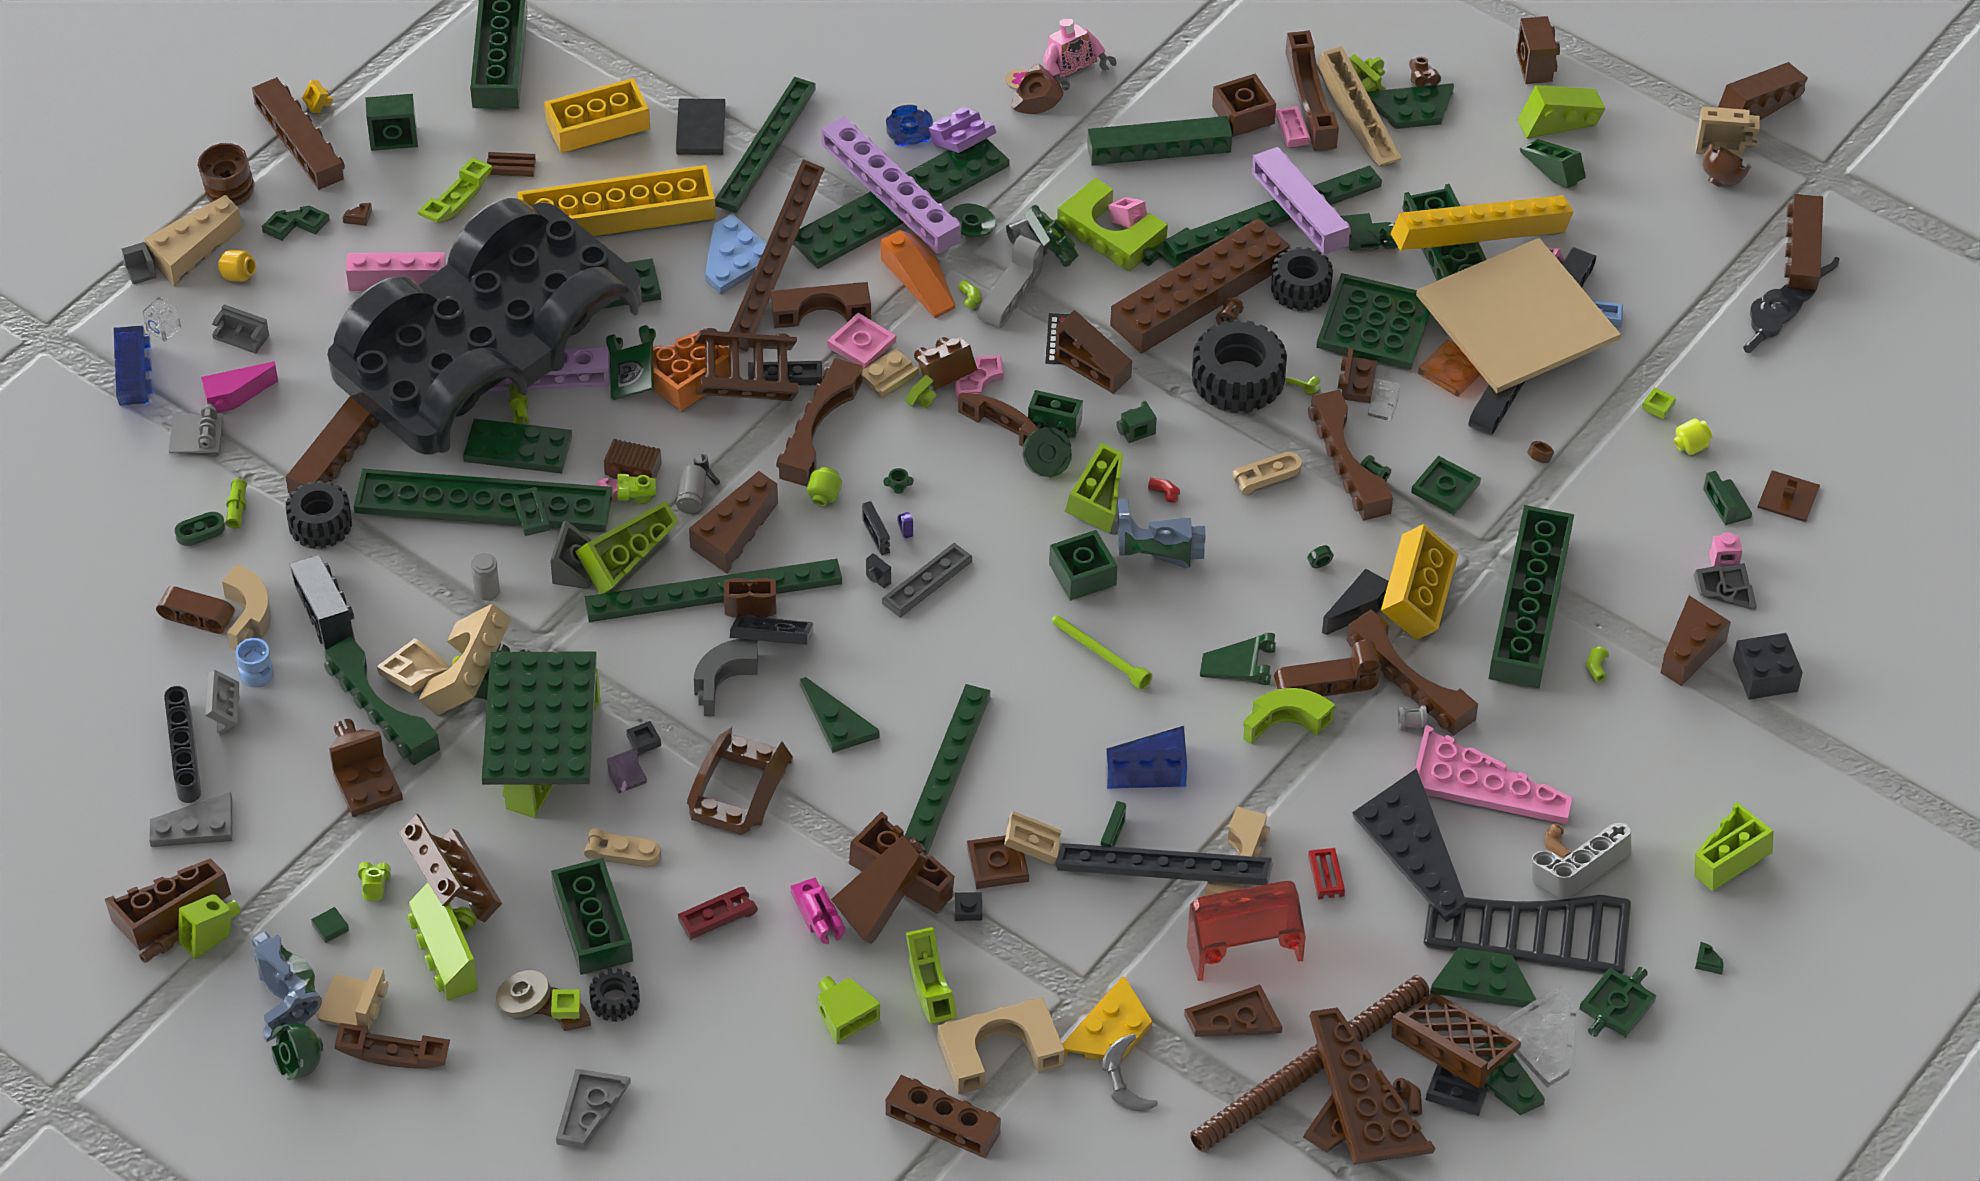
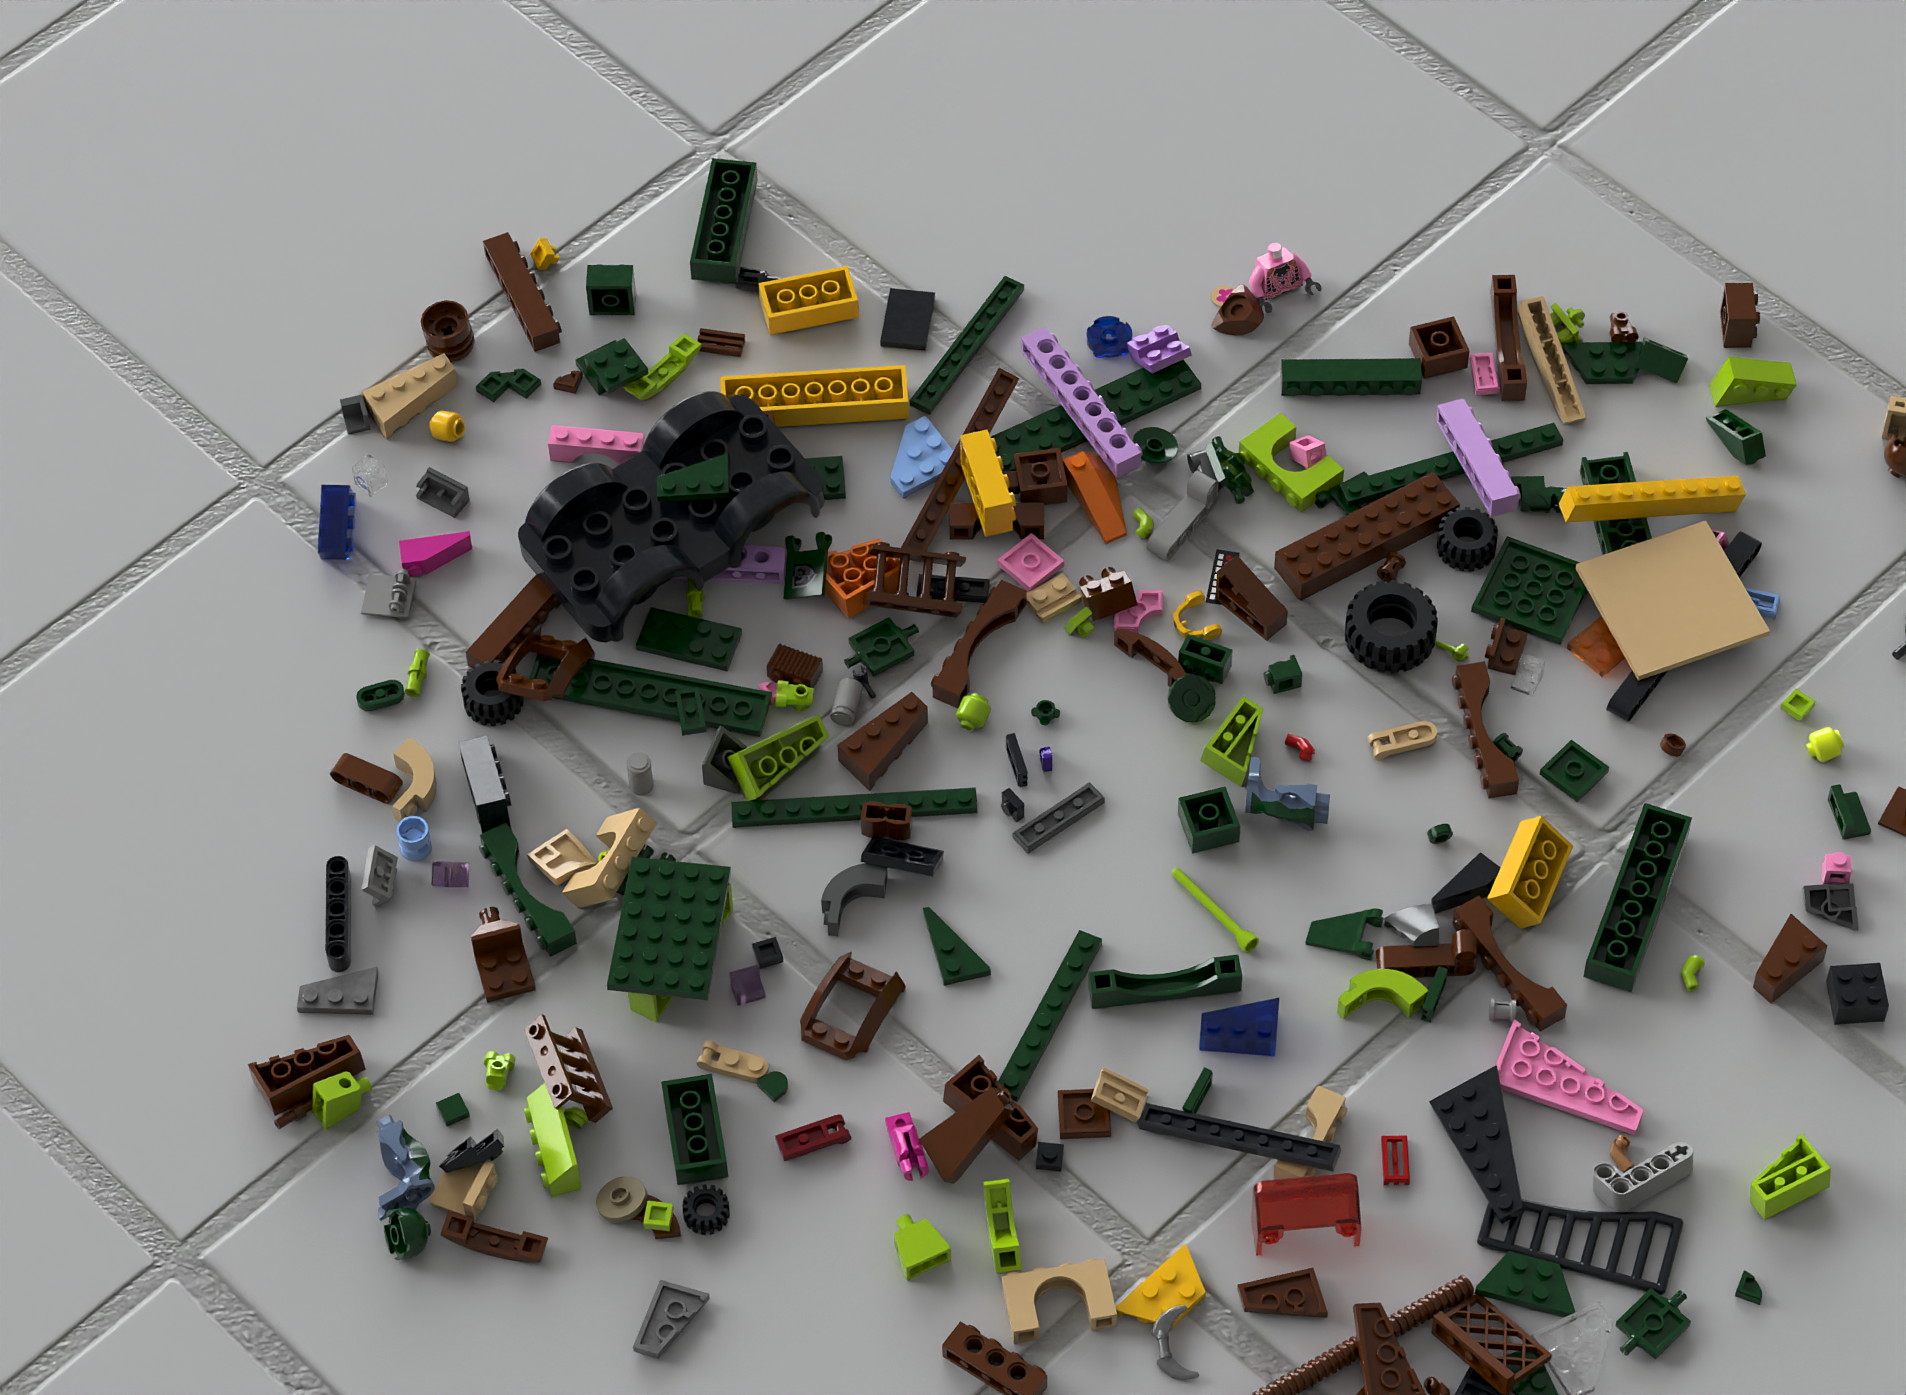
camera: 10 degrees right, 5 degrees up
(297, 693) = (450, 874): none -> clear purple panel
(354, 965) = (471, 1153): none -> black plate
(400, 471) = (574, 658): none -> reddish brown wedge
(402, 194) = (611, 366): none -> dark green bracket
(511, 285) = (696, 482): none -> dark green wing
(533, 101) = (750, 278): none -> black arm
(668, 866) = (773, 1085): none -> dark green tile
(719, 434) = (881, 646): none -> dark green plate
(808, 265) = (987, 482): none -> yellow brick
(855, 259) = (1039, 477): none -> reddish brown brick
(1016, 735) = (1120, 988): none -> dark green arch
(1031, 362) = (1192, 600): none -> yellow piece
(1312, 644) = (1416, 925): none -> slope
(1340, 709) = (1434, 994): none -> dark green tile
(1467, 99) = (1661, 360): none -> dark green panel

